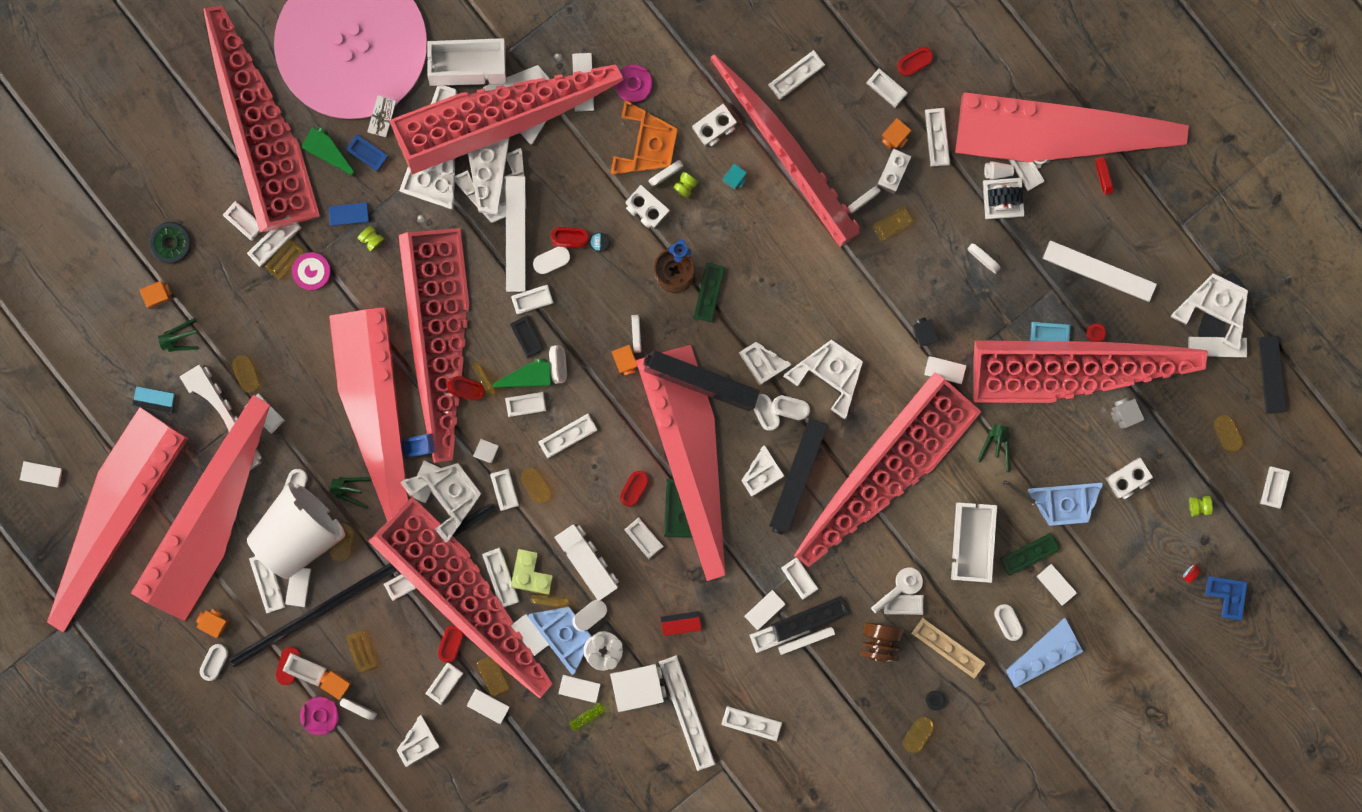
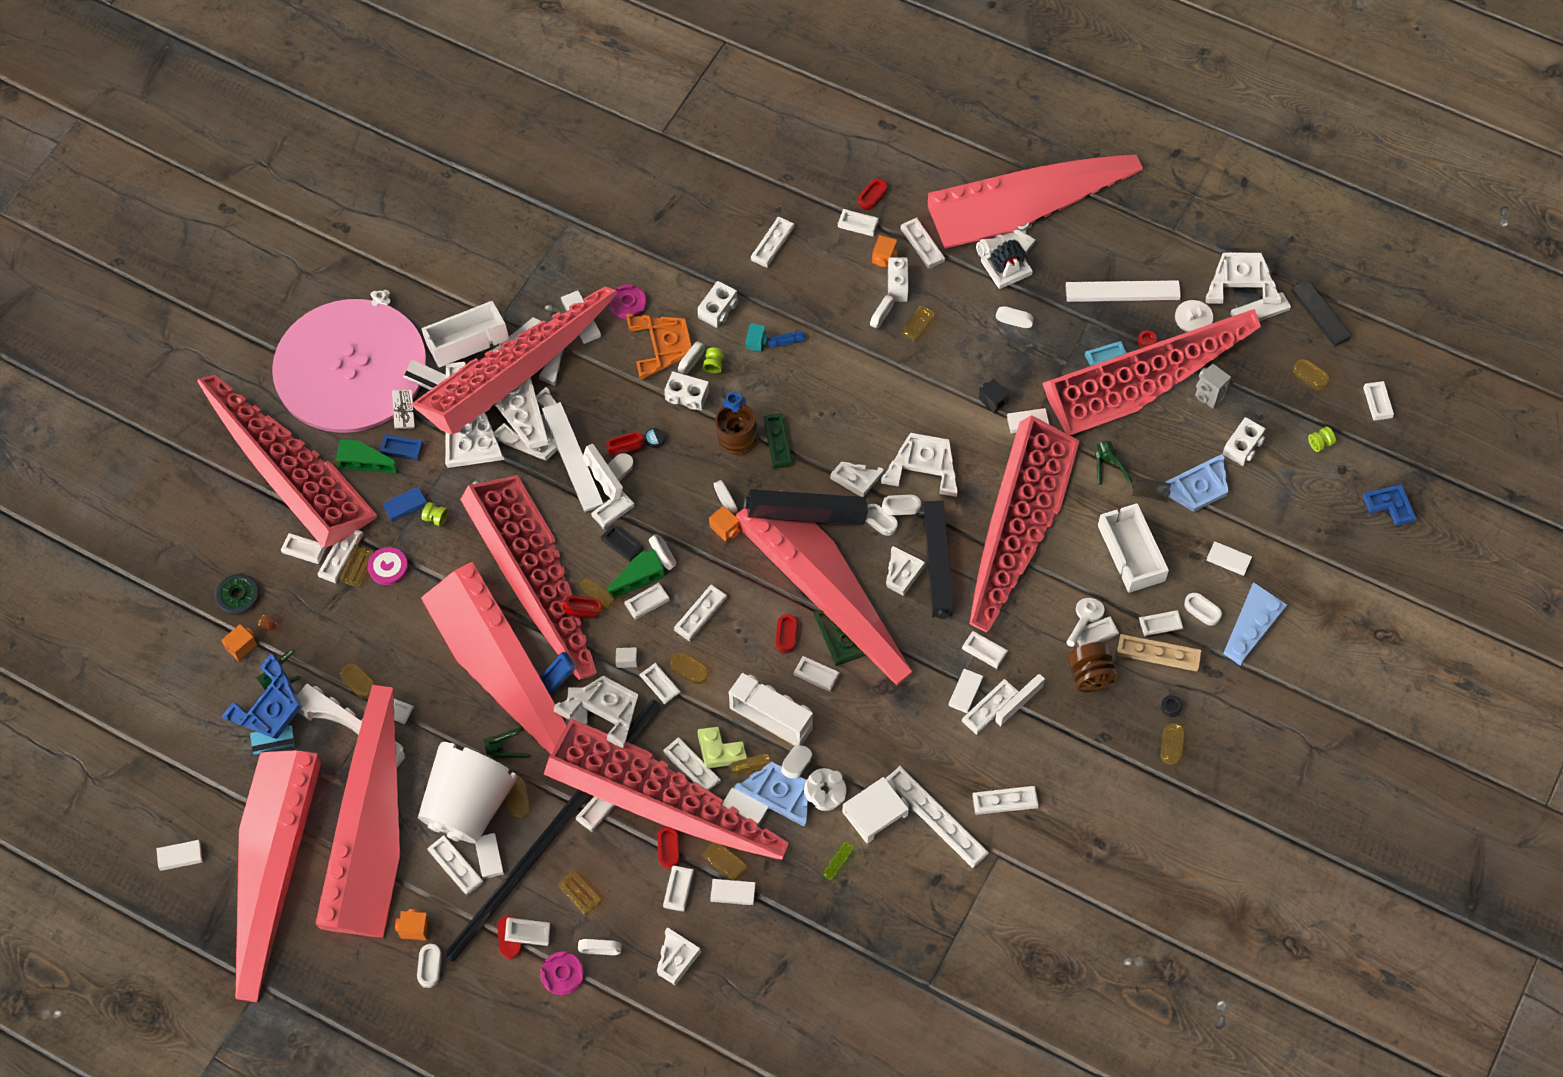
camera: 20 degrees left, 25 degrees down
(163, 376) = (274, 707): none -> blue wing
(184, 284) = (265, 622): none -> clear orange plate
(335, 684) = (565, 932): orange brick -> none
(414, 88) = (423, 375): none -> white tile
(534, 263) = (602, 472): none -> white plate
(579, 688) = (818, 837): white tile -> none
(680, 623) = (890, 735): red tile -> none
(762, 188) = (785, 339): none -> blue axle
(794, 159) = (800, 302): coral wedge -> none
(809, 619) = (1012, 679): black tile -> none
(964, 620) = (1161, 623): none -> white tile
(1029, 554) = (1189, 543): dark green tile -> none
(1103, 175) = (1085, 215): red tile -> none
(1152, 326) = (1193, 315): none -> white piece
(1191, 573) = (1347, 498): red tile -> none

